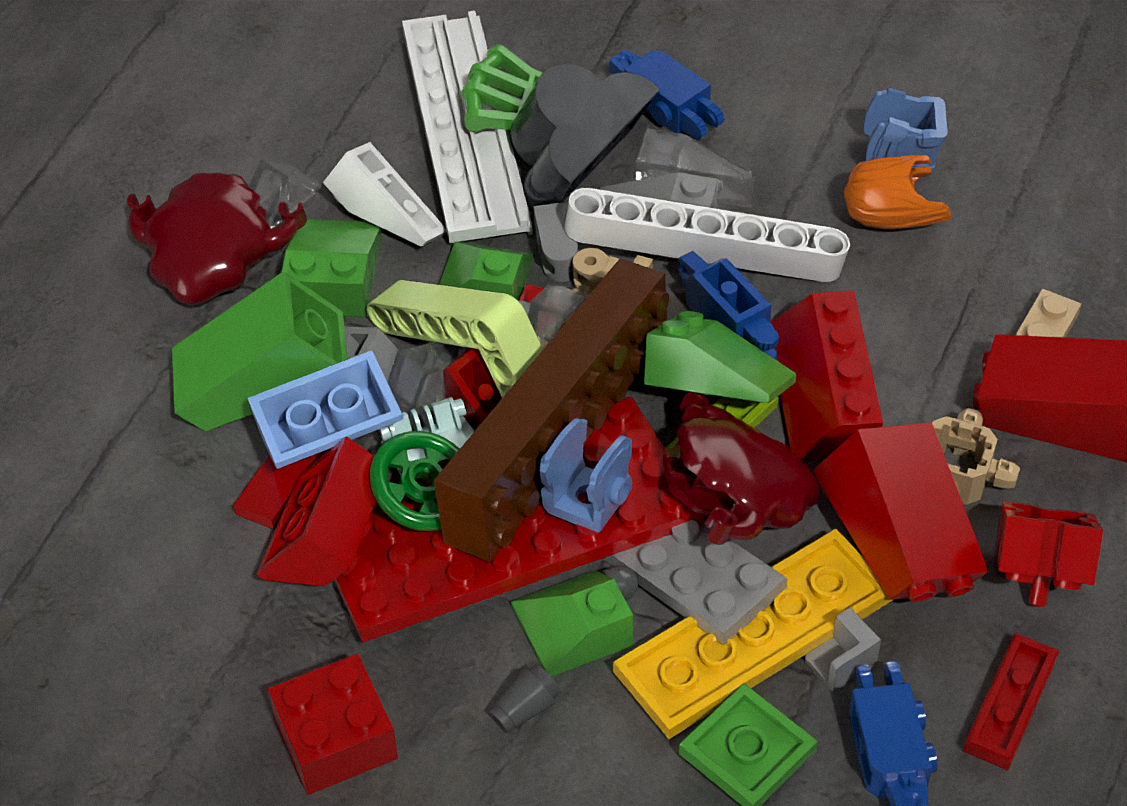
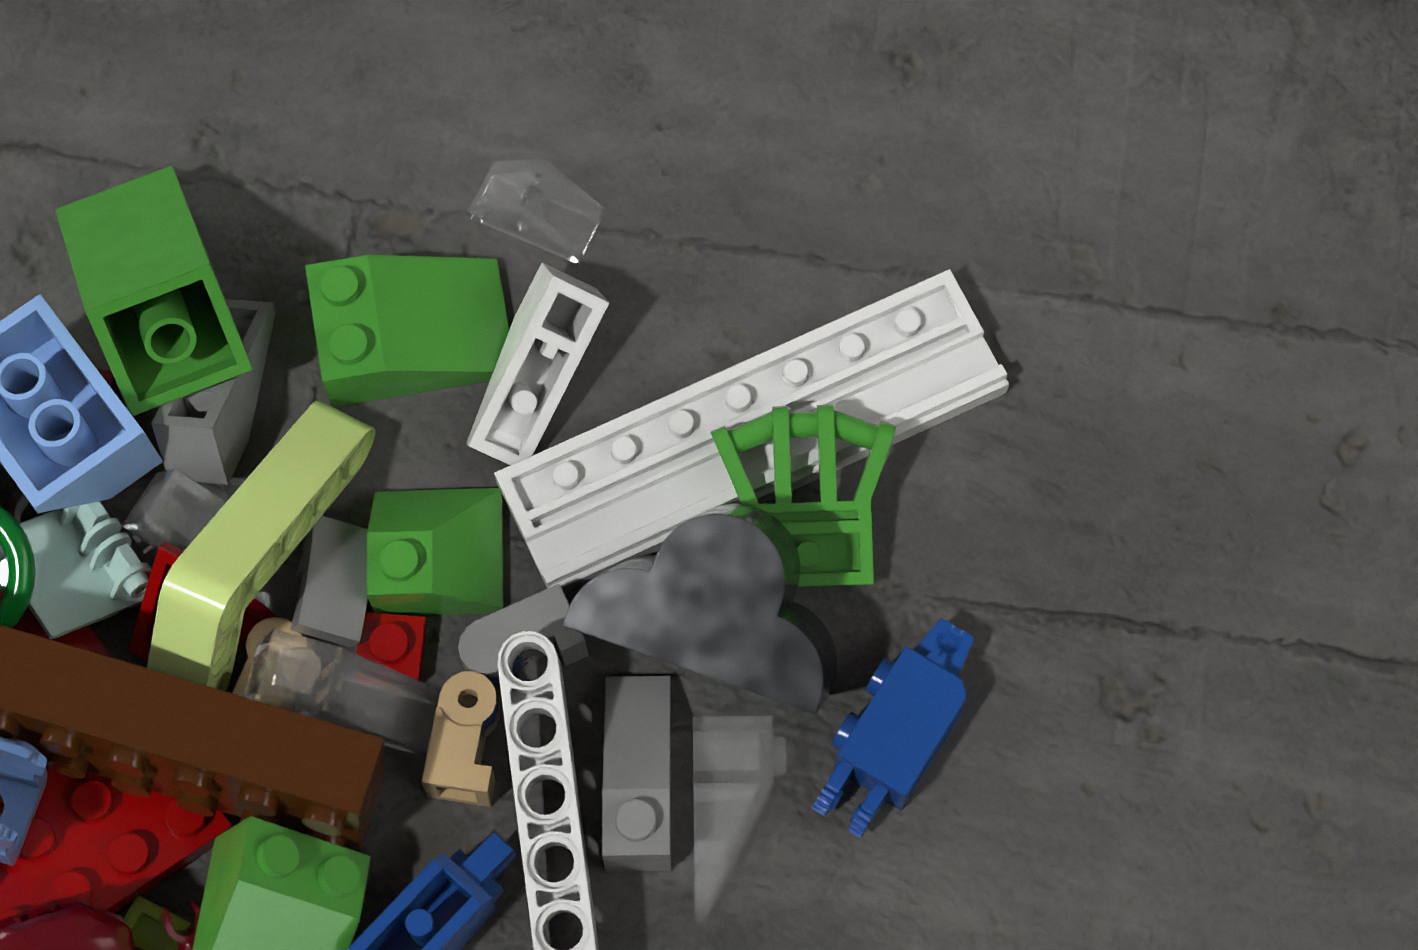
camera: 75 degrees right, 20 degrees up
(208, 234) = (395, 141): dark red piece -> none

